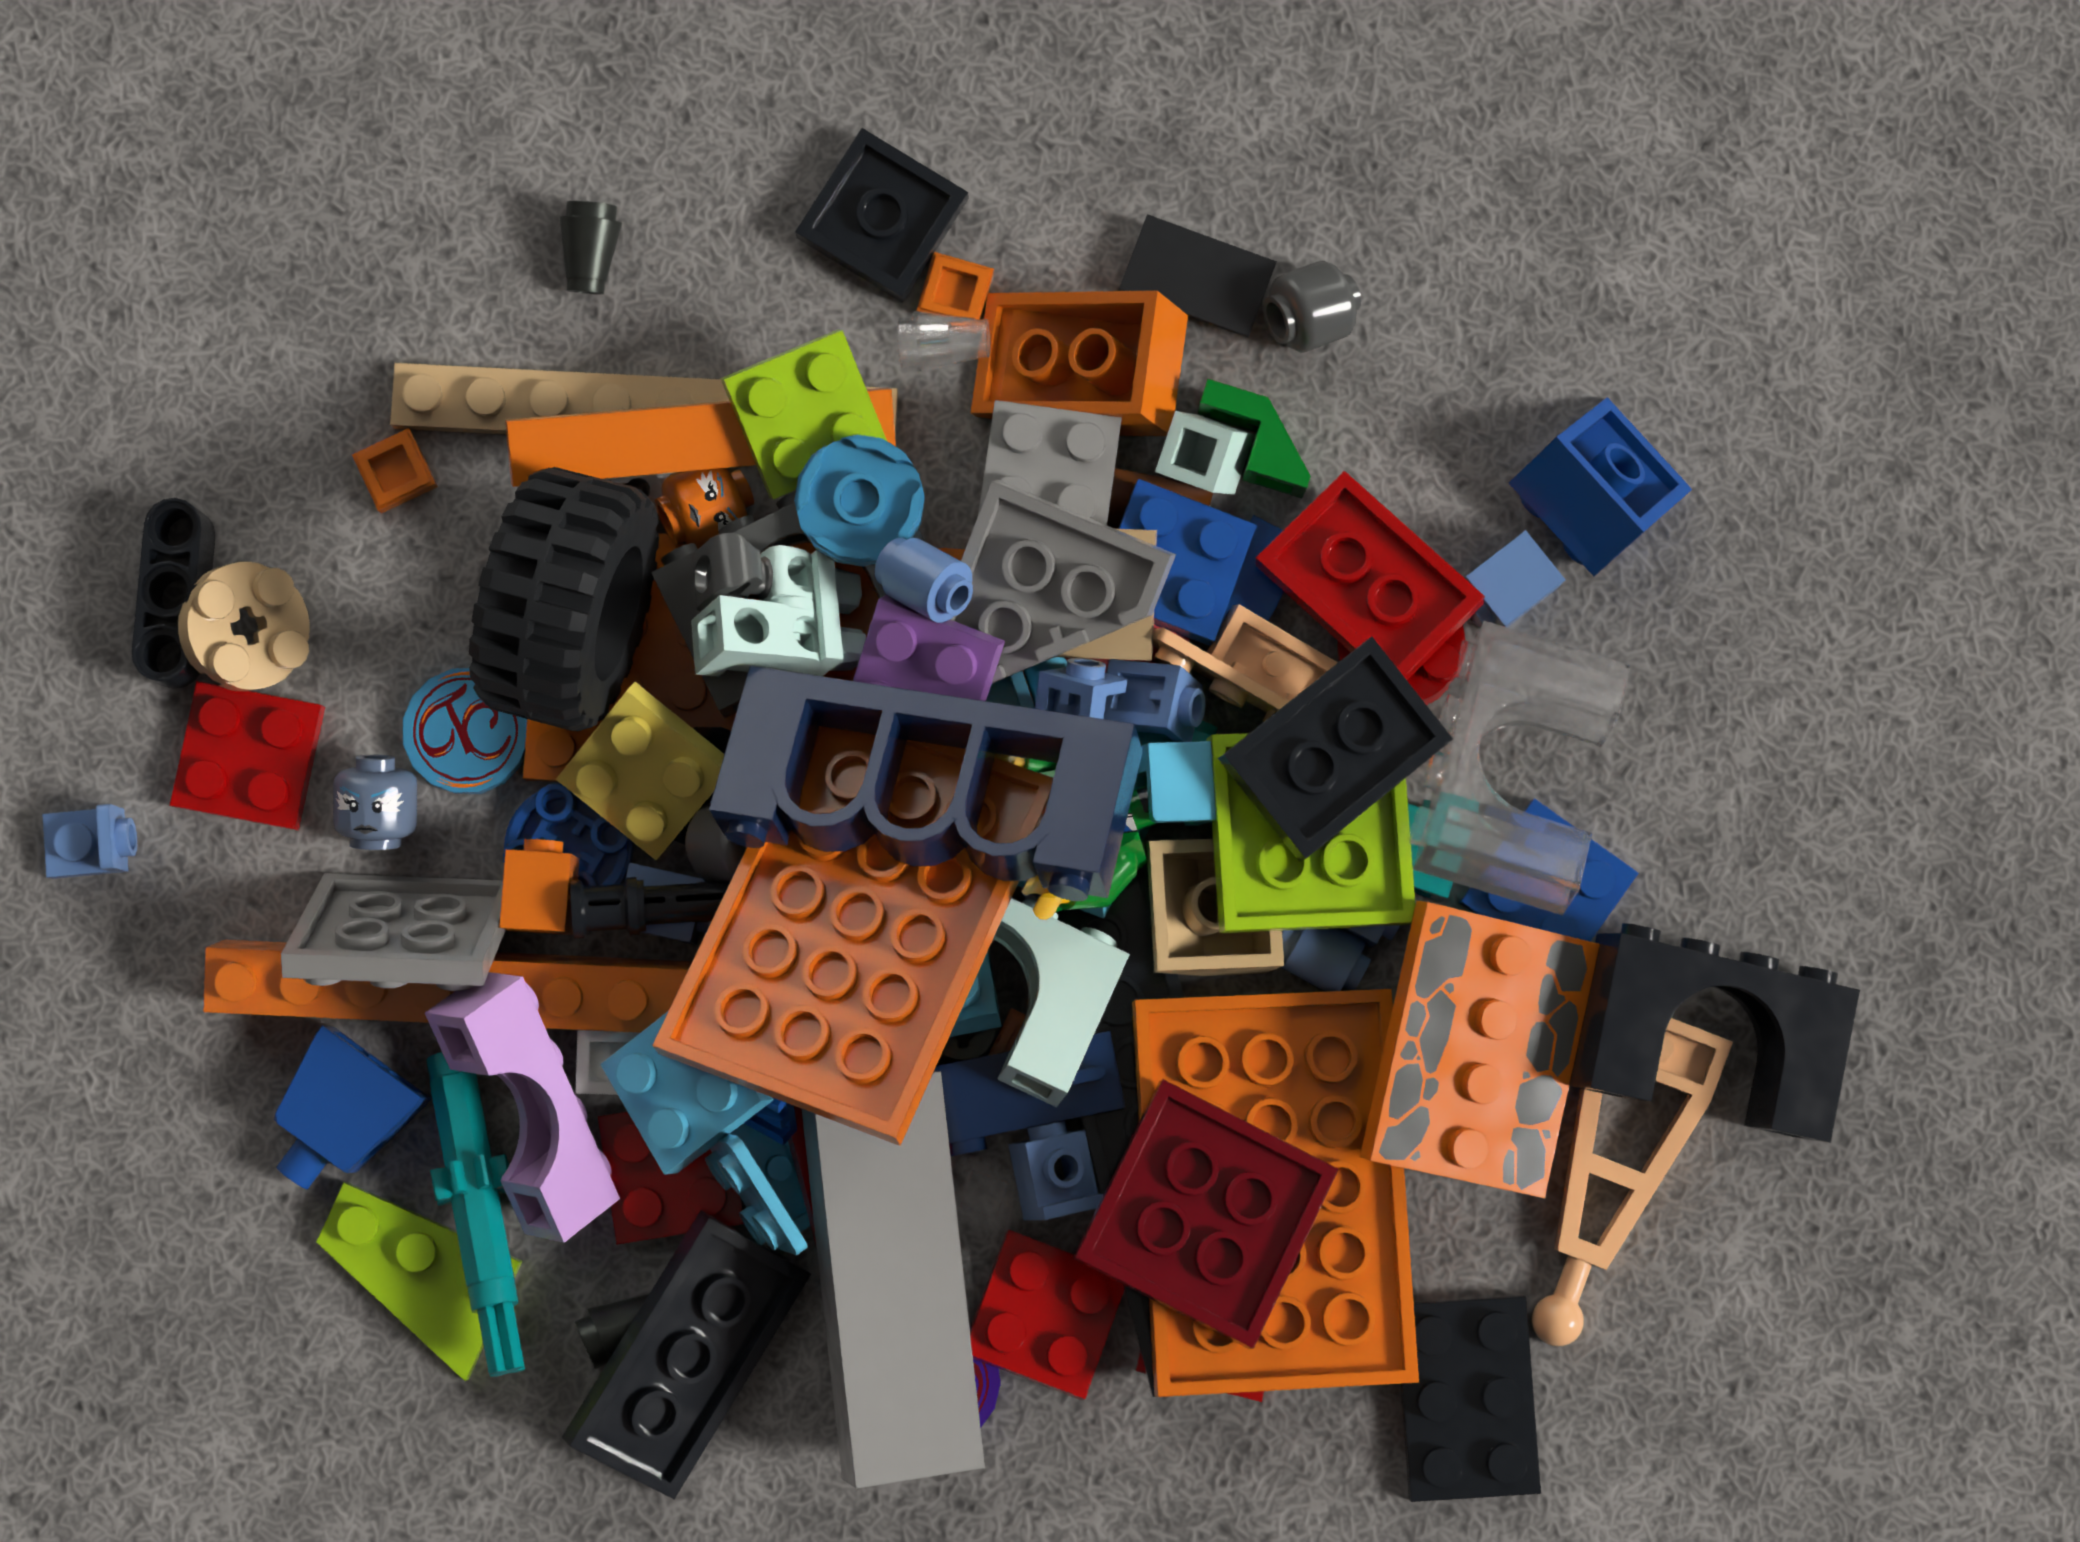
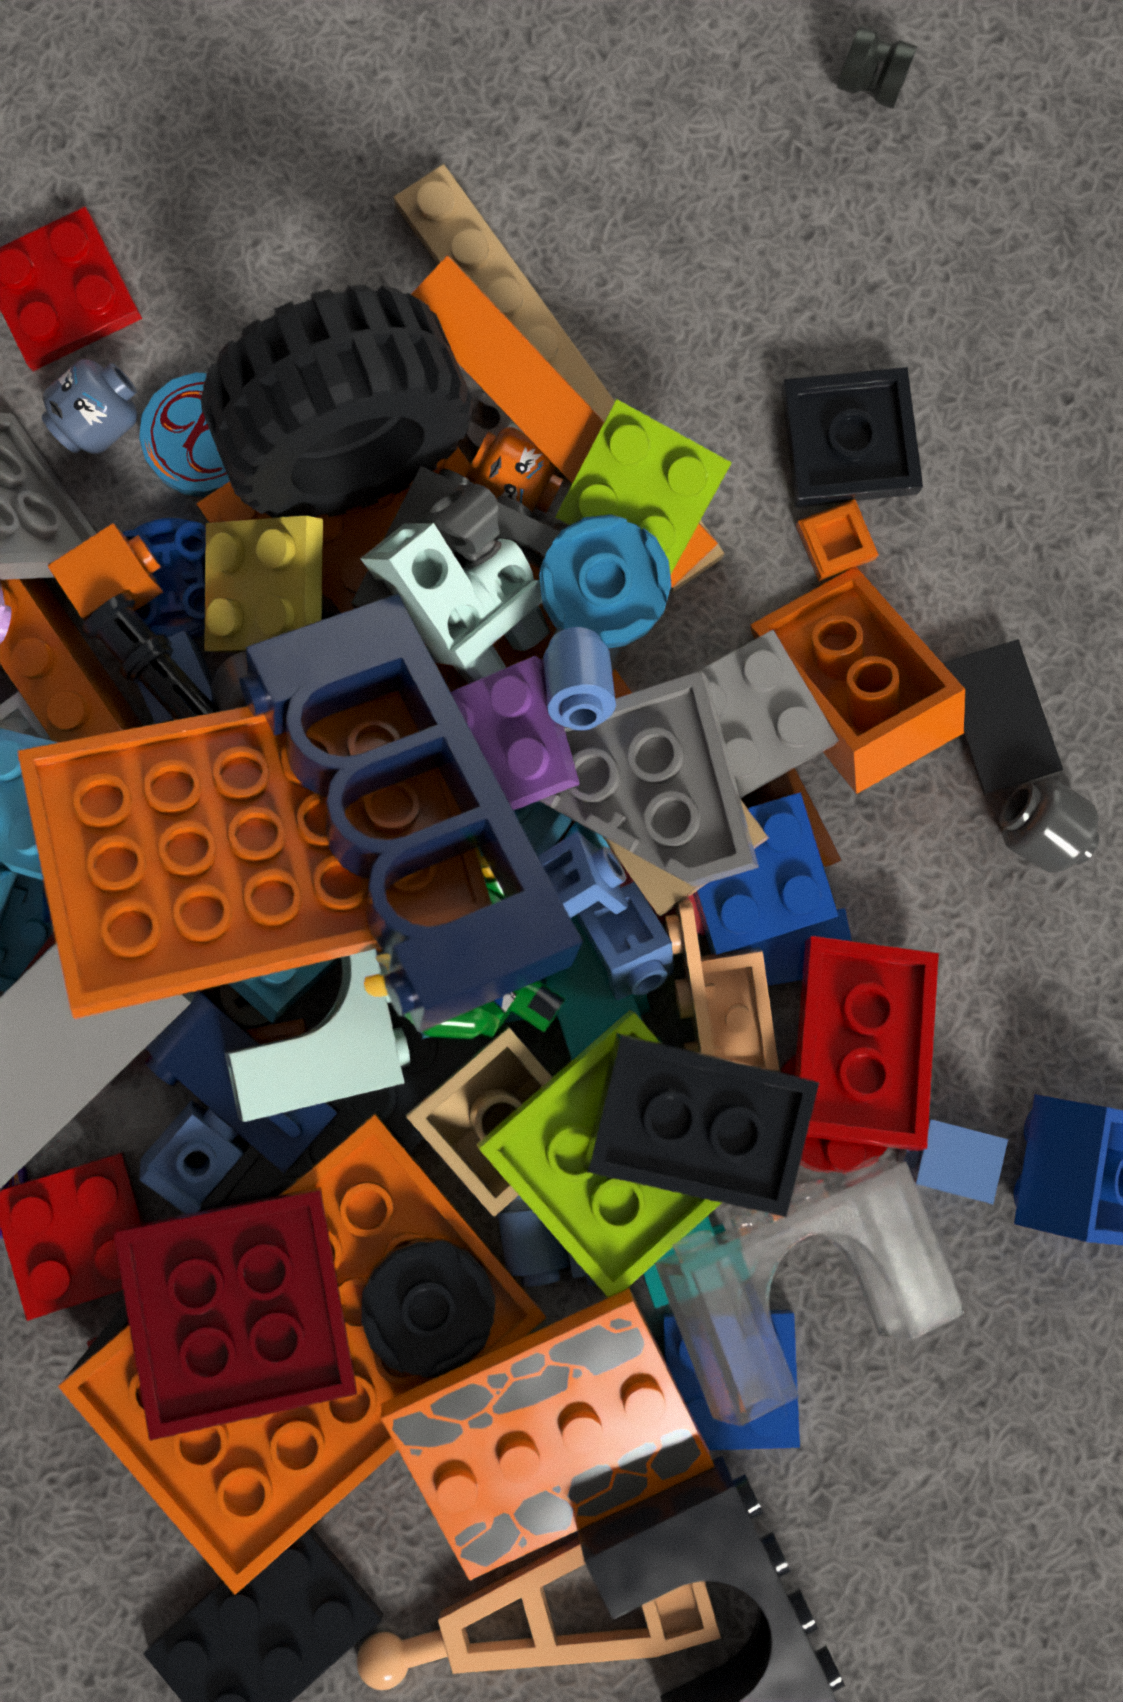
camera: 55 degrees right, 0 degrees up
(158, 568) = (147, 109): black beam -> none
(280, 617) = (113, 211): tan plate -> none
(394, 470) = (362, 229): orange tile -> none
(588, 244) = (650, 235): pearl dark grey cone -> none
(940, 340) = (787, 555): clear cone -> none
(1179, 782) = (574, 1014): medium azure panel -> none
(1204, 453) = (863, 830): light aqua brick -> none
(1273, 459) = (904, 888): green slope -> none
(1314, 1070) = (427, 1307): none -> black tile

